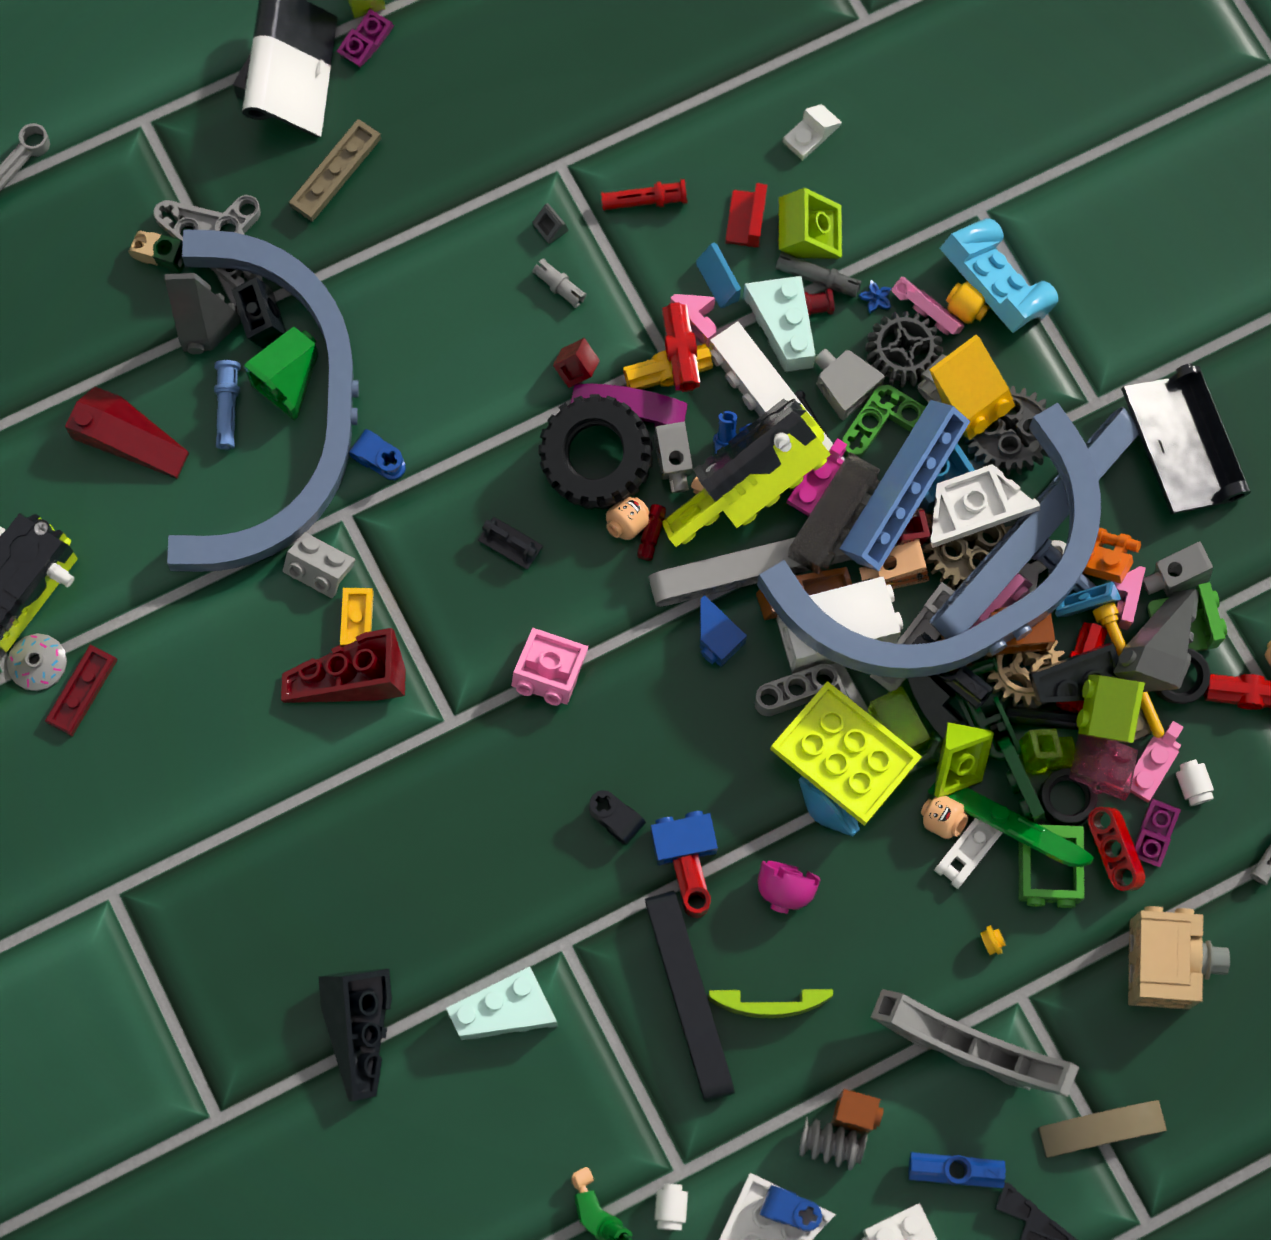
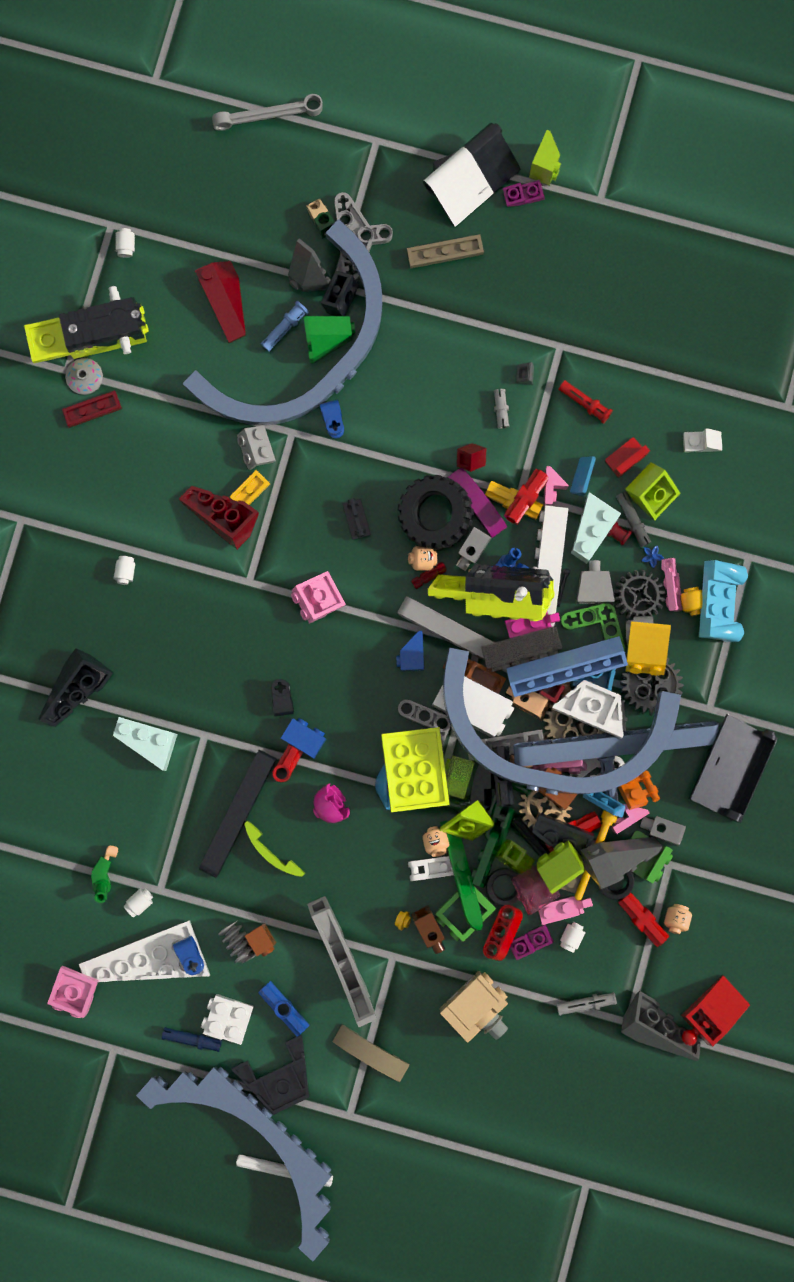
camera: 45 degrees right, 10 degrees up
(292, 837) = (124, 570): none -> white brick
(1031, 920) = (427, 923): none -> reddish brown torso

